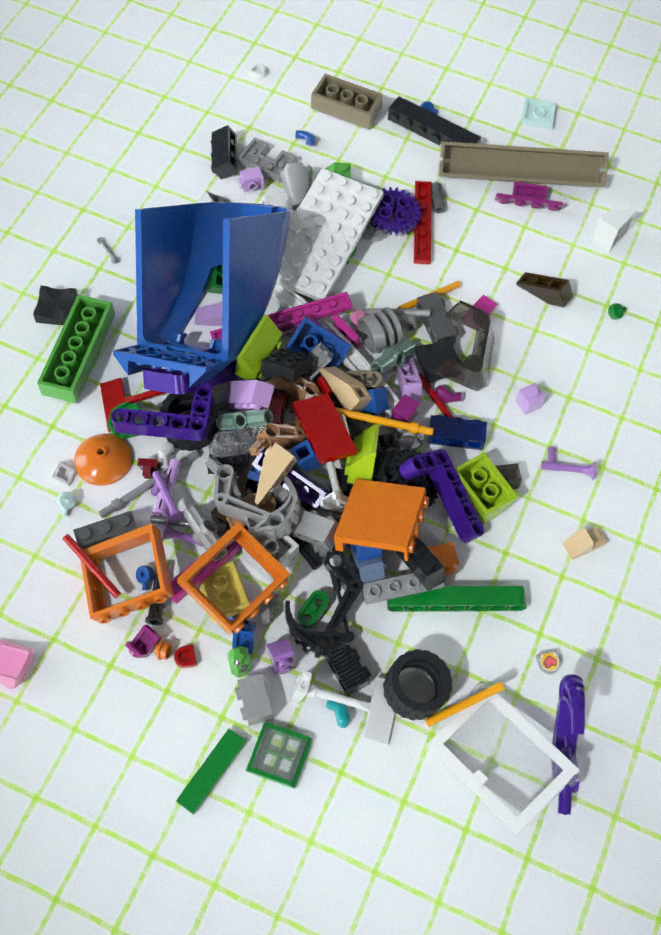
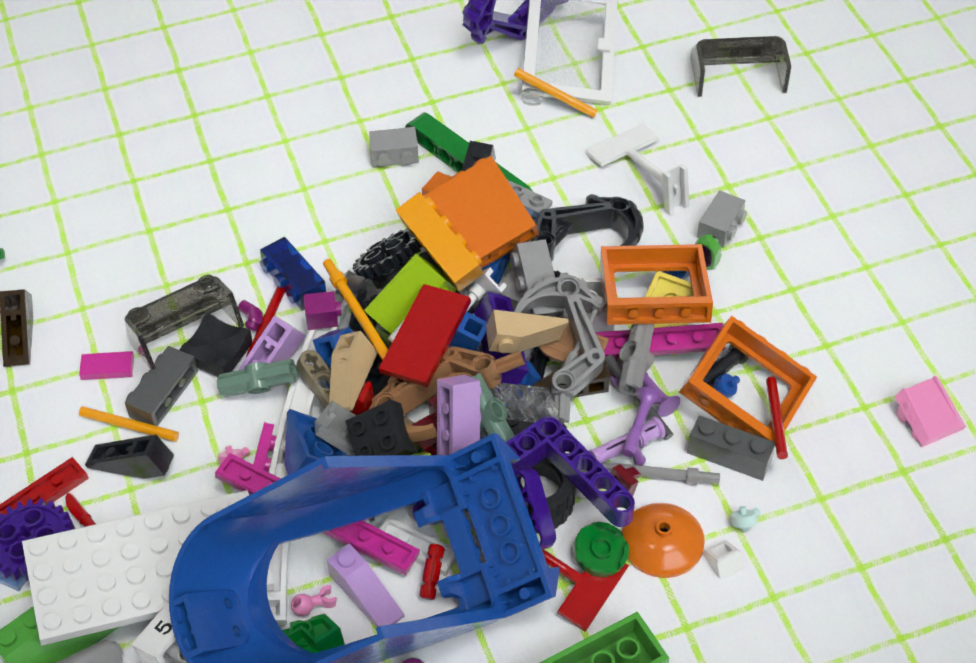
camera: 130 degrees left, 10 degrees down
(143, 642) = (781, 331): magenta bracket -> none
(163, 650) = (767, 313): orange plate -> none
(185, 657) = (750, 298): red tile -> none
(196, 341) = (431, 571): none -> red axle
(210, 771) = (806, 206): green tile -> none
(267, 610) = (635, 280): light grey bracket -> none
(279, 755) = (739, 175): clear piece -> none
(281, 656) = (668, 221): medium lavender slope -> none
(313, 610) = (589, 245): green plate -> none
(341, 712) = (659, 160): teal arm -> none
(349, 670) = (619, 178): black brick -> none
(374, 904) = (740, 51): none -> clear smoke windscreen
(377, 480) = (439, 241): none -> light orange brick
(380, 330) = (234, 411): light grey wheel -> none
(386, 244) = (78, 510): none -> red piece
(398, 312) = (191, 424): light grey bar -> none
(401, 278) = (132, 457): none -> black slope
(408, 322) = (192, 410): light grey tile -> none
(434, 667) = (579, 123): black tyre -> none
(450, 490) = (375, 224): dark purple beam -> none
(486, 487) = (338, 207): lime slope -> none
(511, 474) = (303, 206): clear smoke brick -> none
(511, 566) = (394, 147): none -> light grey brick
(530, 398) = (189, 245): lavender brick -> none
(548, 662) = (451, 79): tile -> none
(552, 465) = (227, 157): medium lavender piece -> none
(584, 542) = (312, 121): tan slope -> none

